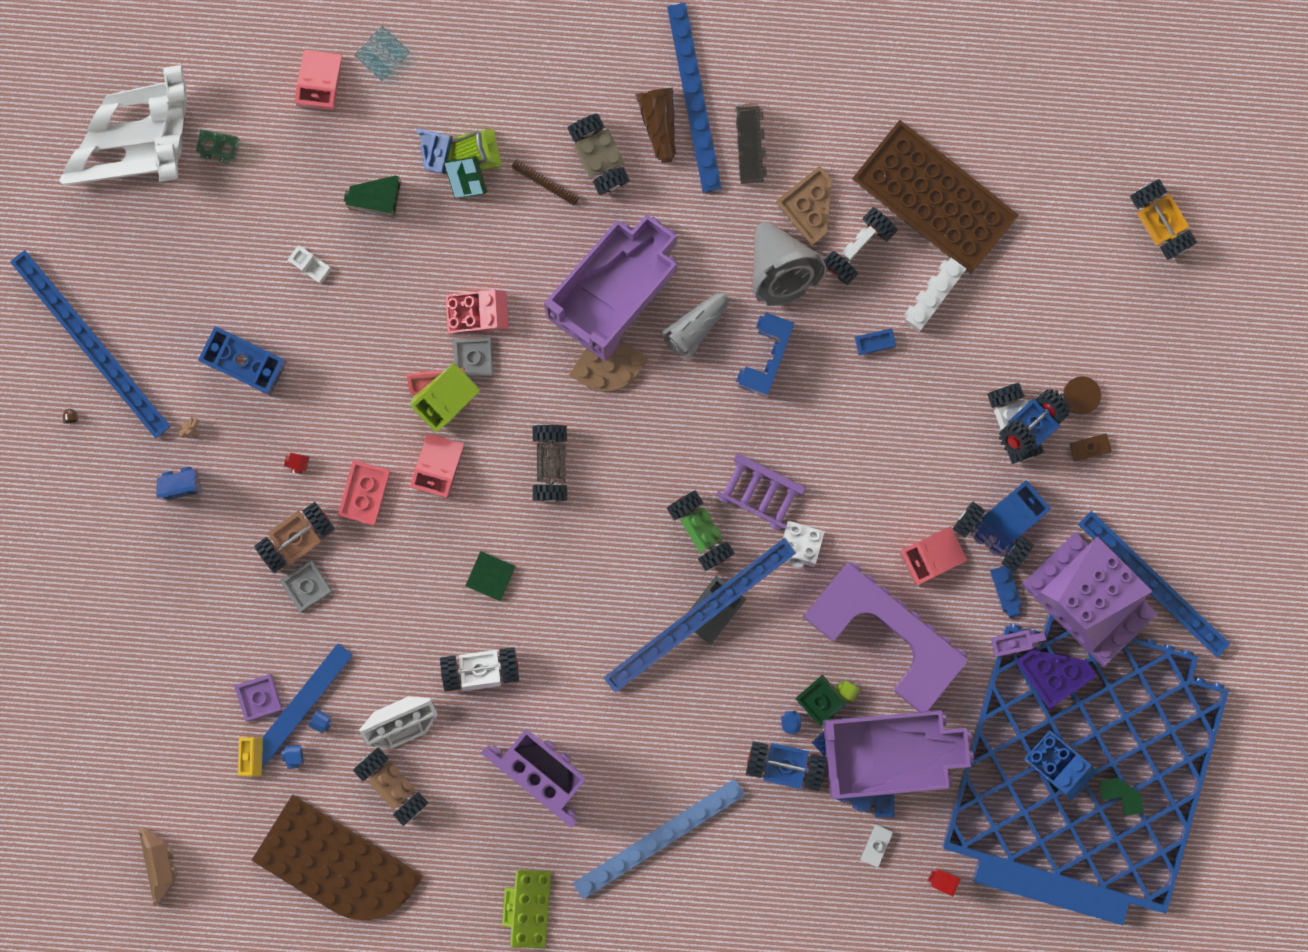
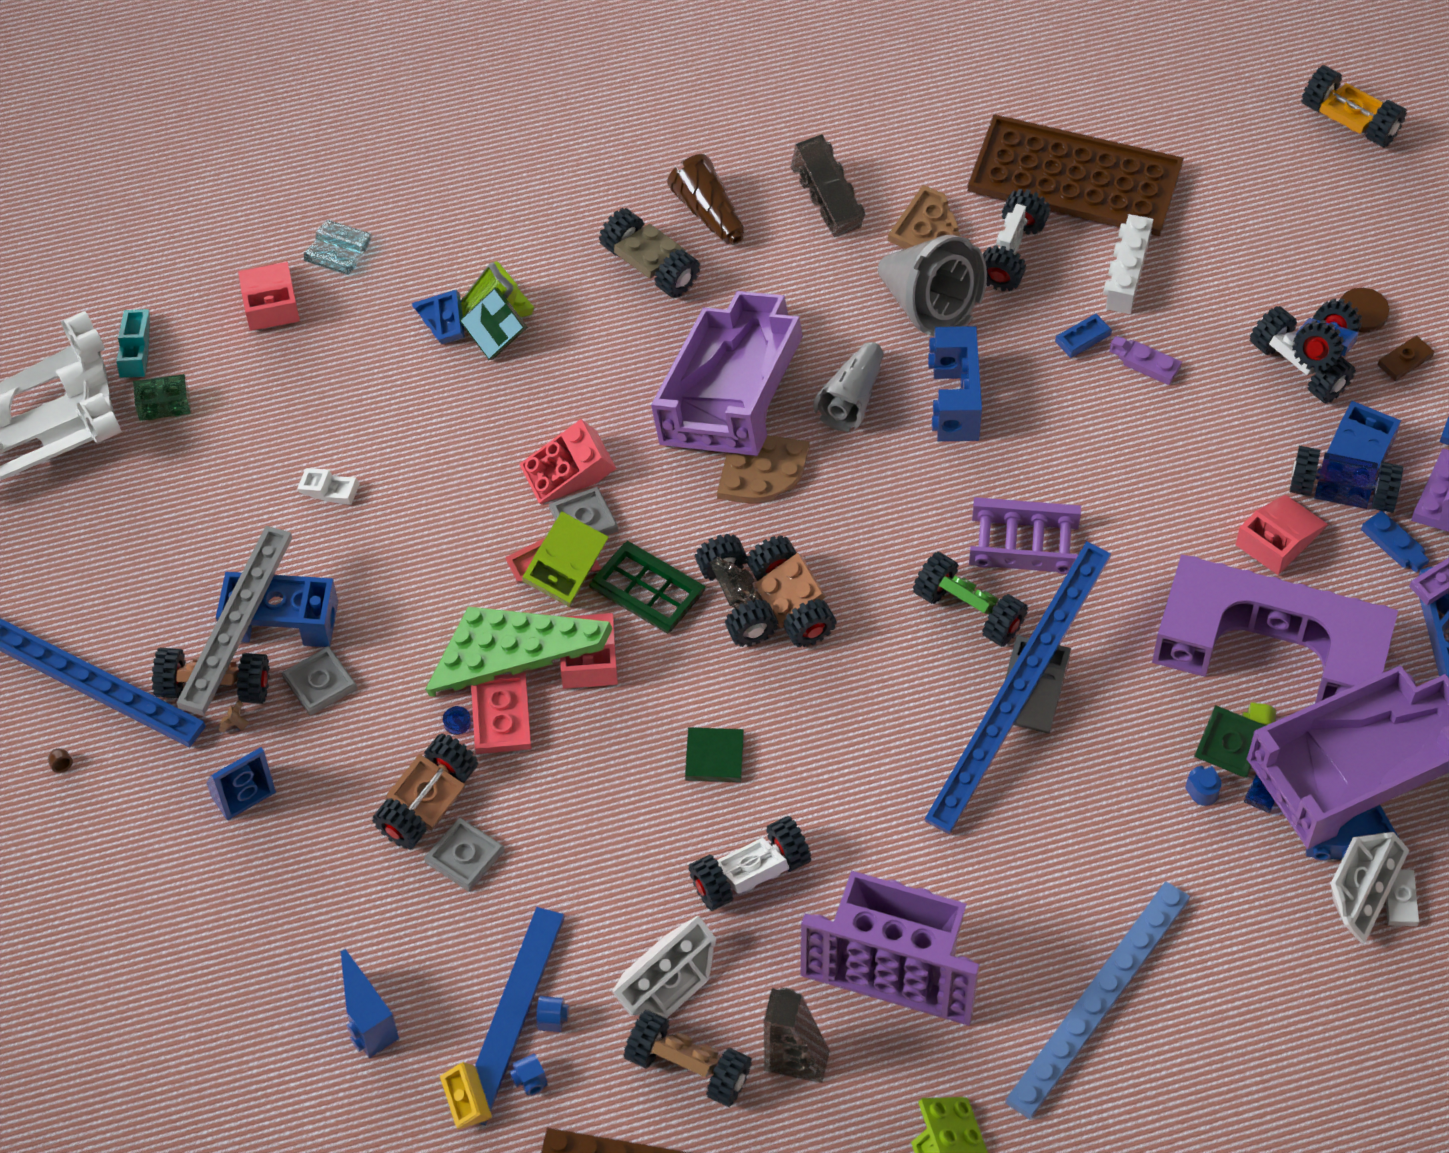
camera: 15 degrees left, 30 degrees down
(184, 394) = (172, 671): none -> black plate
(206, 678) = (369, 1017): none -> blue slope
(208, 371) = (234, 621): none -> light grey plate
(212, 87) = (133, 343): none -> teal slope
(255, 419) = (319, 681): none -> light grey tile
(258, 697) = (449, 1019): medium lavender tile -> none
(296, 462) = (395, 706): red plate -> none
(334, 485) = (456, 720): none -> clear blue tile
(374, 197) = (383, 380): dark green slope -> none
(384, 447) = (511, 641): none -> bright green wing
(456, 806) = (792, 1038): none -> clear smoke wedge
(494, 430) = (647, 587): none -> dark green piece
(543, 184) = (596, 307): reddish brown piece -> none
(585, 478) = (791, 591): none -> plate
(694, 97) = (740, 175): blue plate -> none
(786, 766) = (1227, 834): plate -> none
(805, 542) = (1117, 573): white plate -> none
(854, 834) = (1366, 880): none -> white wedge
(910, 378) = (1146, 359): none -> medium lavender hinge

